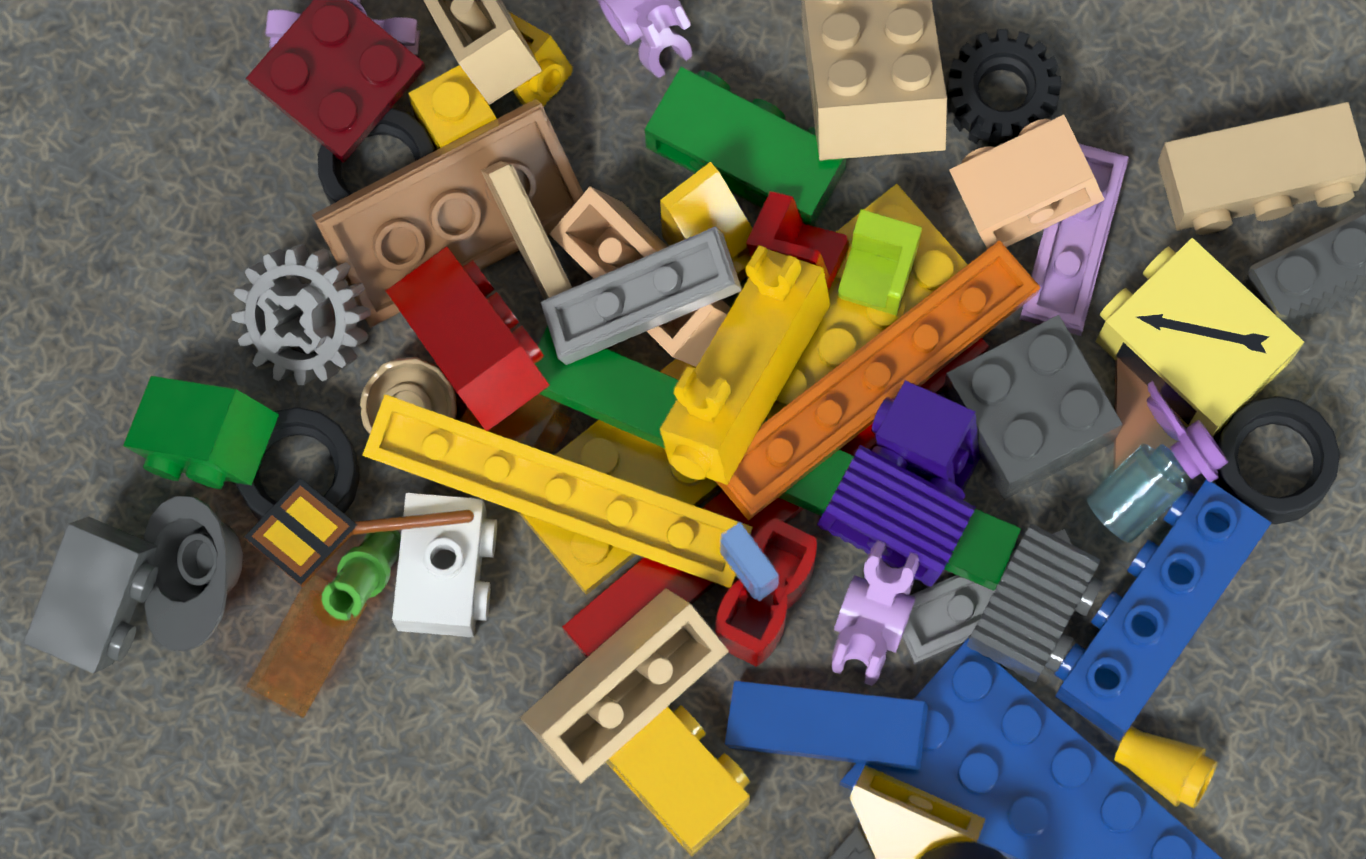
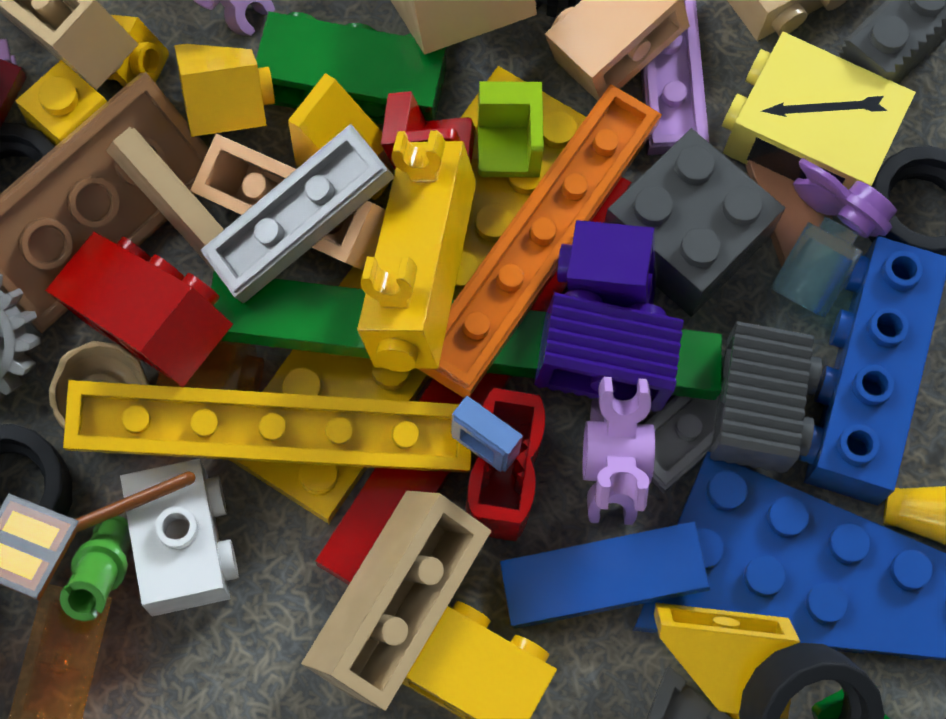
camera: 25 degrees left, 5 degrees down
(609, 137) = (222, 88): none -> yellow slope

